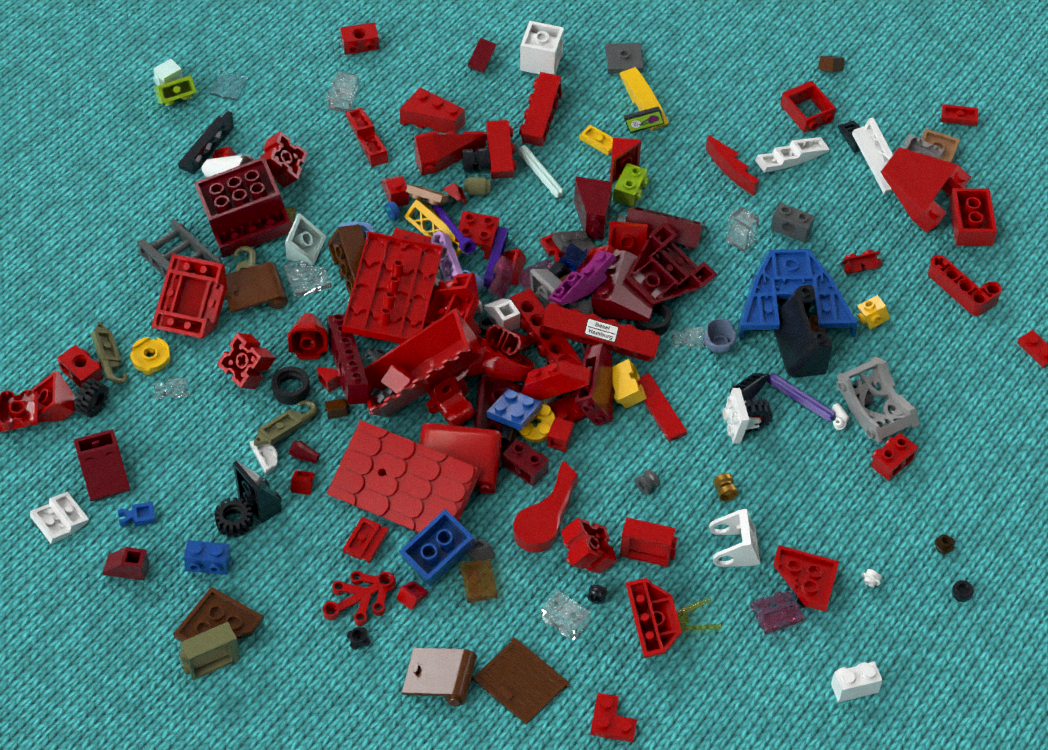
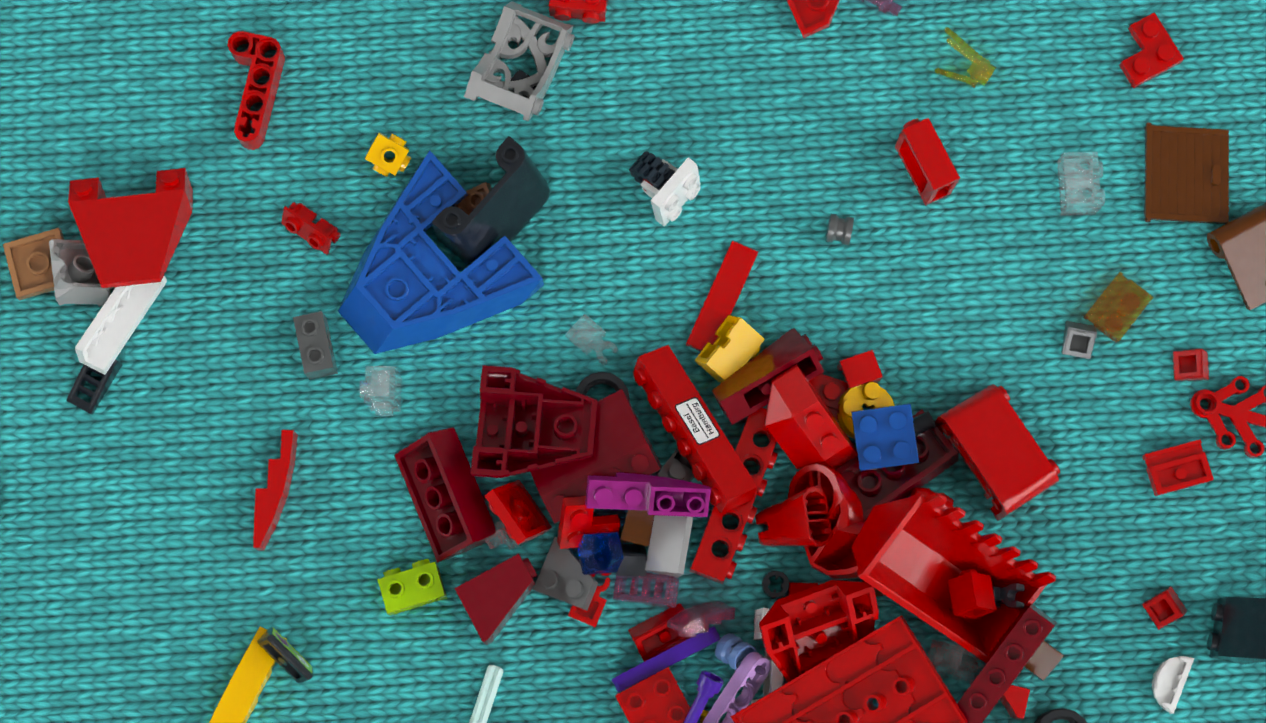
camera: 130 degrees left, 25 degrees up
(284, 424) = (1117, 692): olive plate -> none
(303, 452) = (1133, 638): dark red cone -> none
(401, 478) = (1081, 483): red piece -> none
(437, 547) = (1132, 370): blue brick -> none
(504, 313) = (748, 576): white slope -> none
(525, 462) = (929, 379): dark red brick -> none
(538, 525) = (998, 297): red animal -> none
(588, 546) = (988, 215): red brick -> none
(597, 139) = (364, 690): yellow plate -> none
(597, 594) = (1025, 172): black bush -> none
(624, 152) = (384, 628): red slope -> none
(653, 617) = (1017, 81): red wedge -> none
(719, 336) = (571, 298): sand blue hair -> none
(725, 487) = (774, 142): pearl gold wheel -> none
(743, 553) = (813, 77): white hose -> none
(752, 385) = (610, 227): black slope -> none
(792, 155) = (192, 431): white slope -> none
(801, 397) = (574, 156): dark purple axle -> none
(802, 93) = (68, 457): red window -> none
(841, 417) = (568, 91): white arm -> none
(972, 217) = (135, 141): red brick -> none

